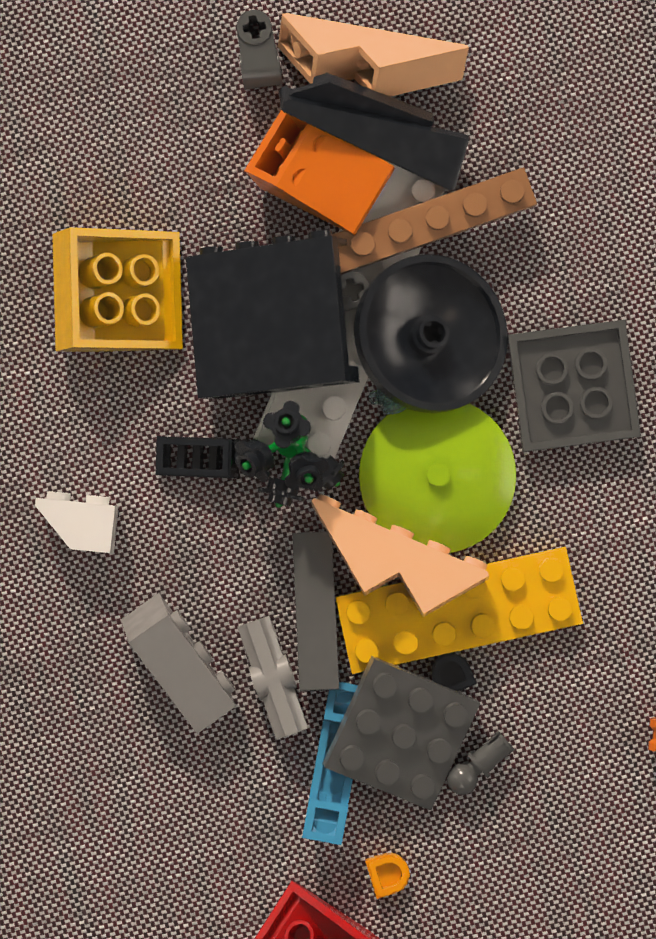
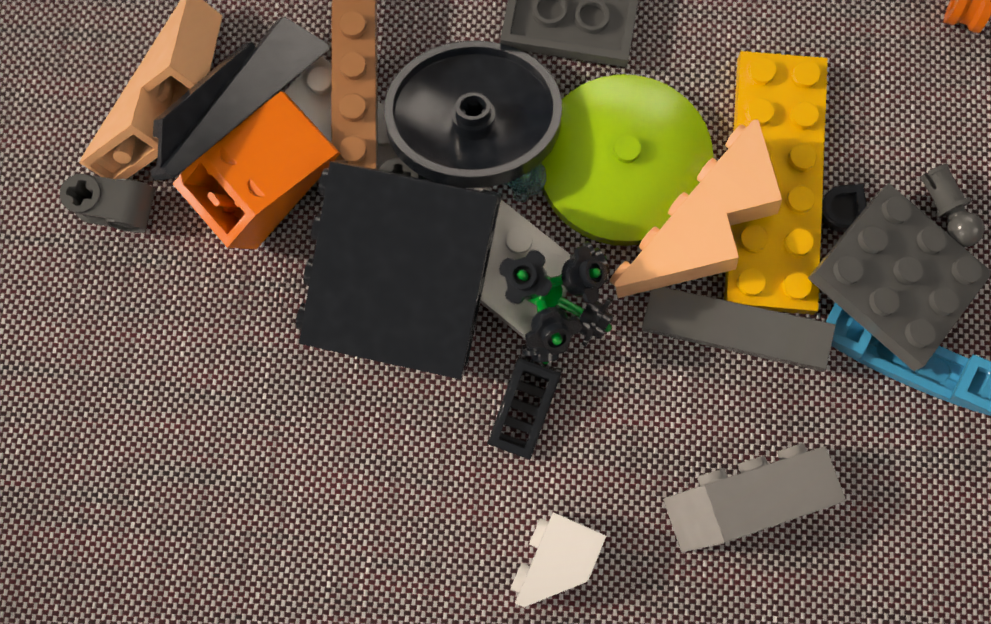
camera: 65 degrees left, 10 degrees down
(117, 290) = (308, 437): yellow slope -> none
(272, 677) = (799, 397): light grey piece -> none

